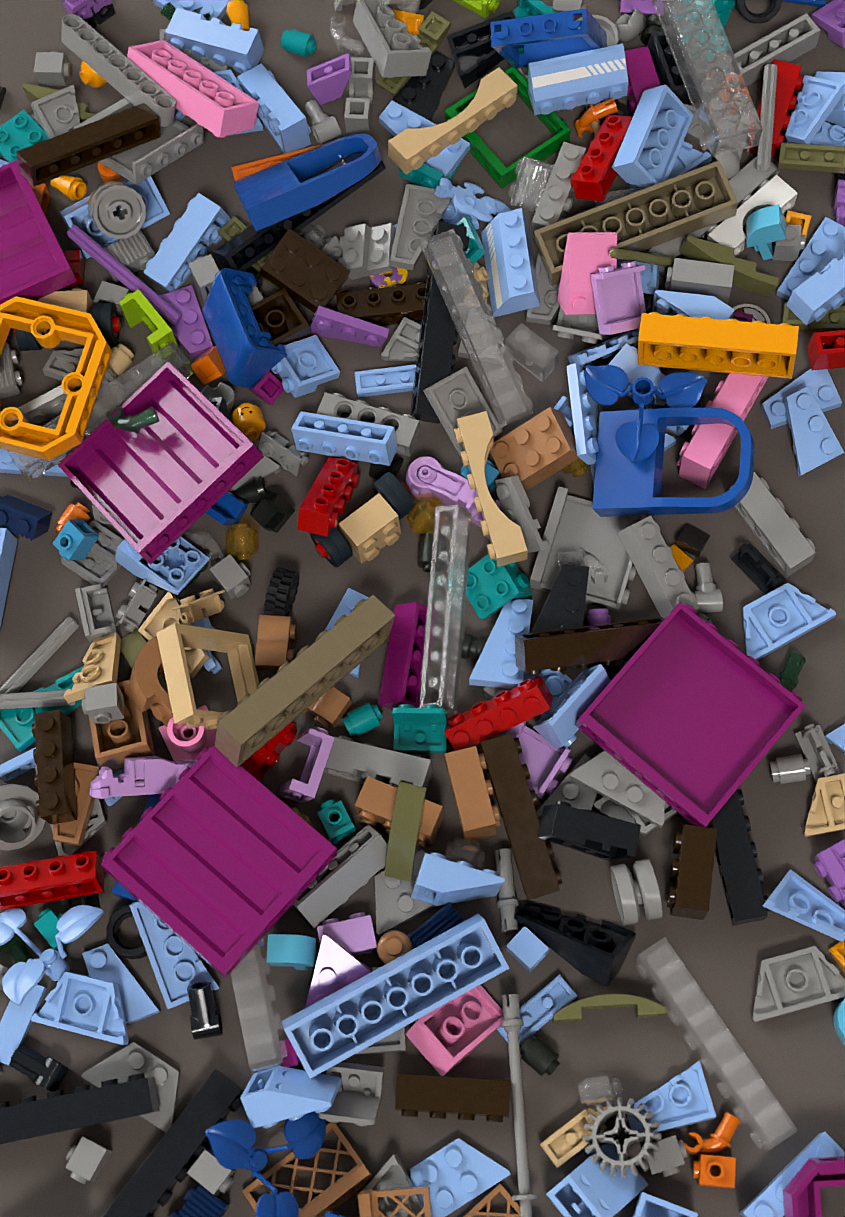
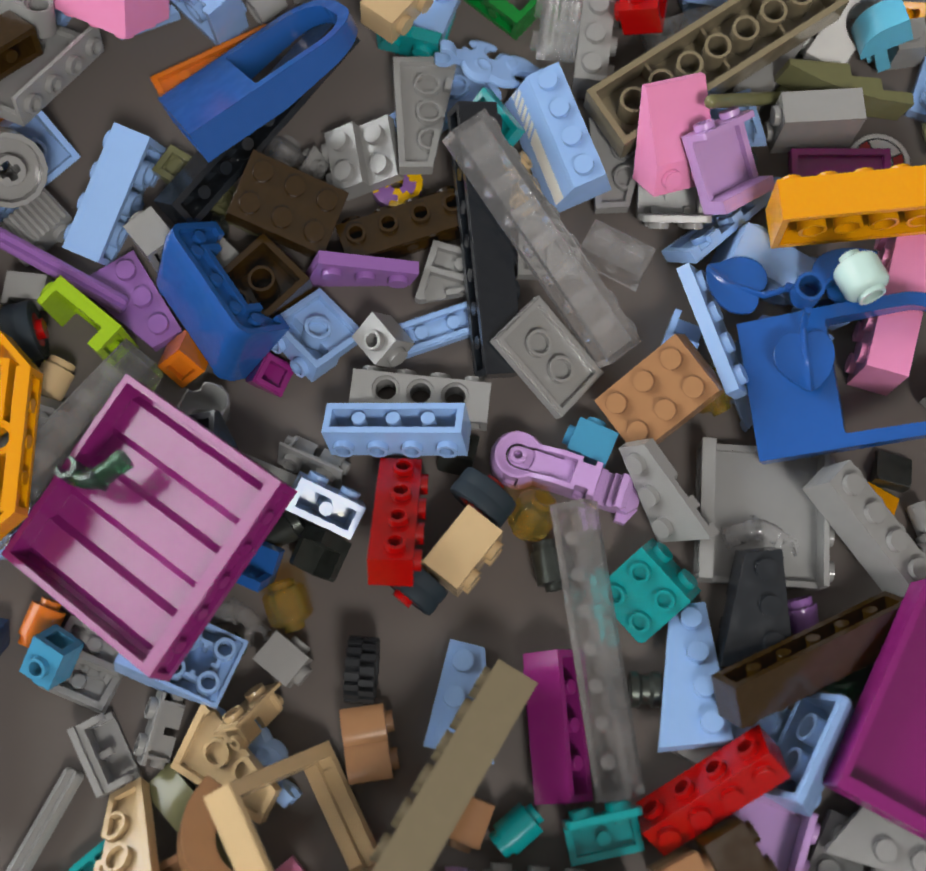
camera: 20 degrees left, 5 degrees up
(249, 420) = (256, 429): light orange head -> none
(282, 479) = (326, 505): none -> light blue brick
(350, 377) = (383, 340): none -> light grey brick
(504, 535) = (656, 530): tan arch -> none
(686, 390) = (861, 276): none -> light aqua head
(691, 305) = (819, 155): light blue slope -> none

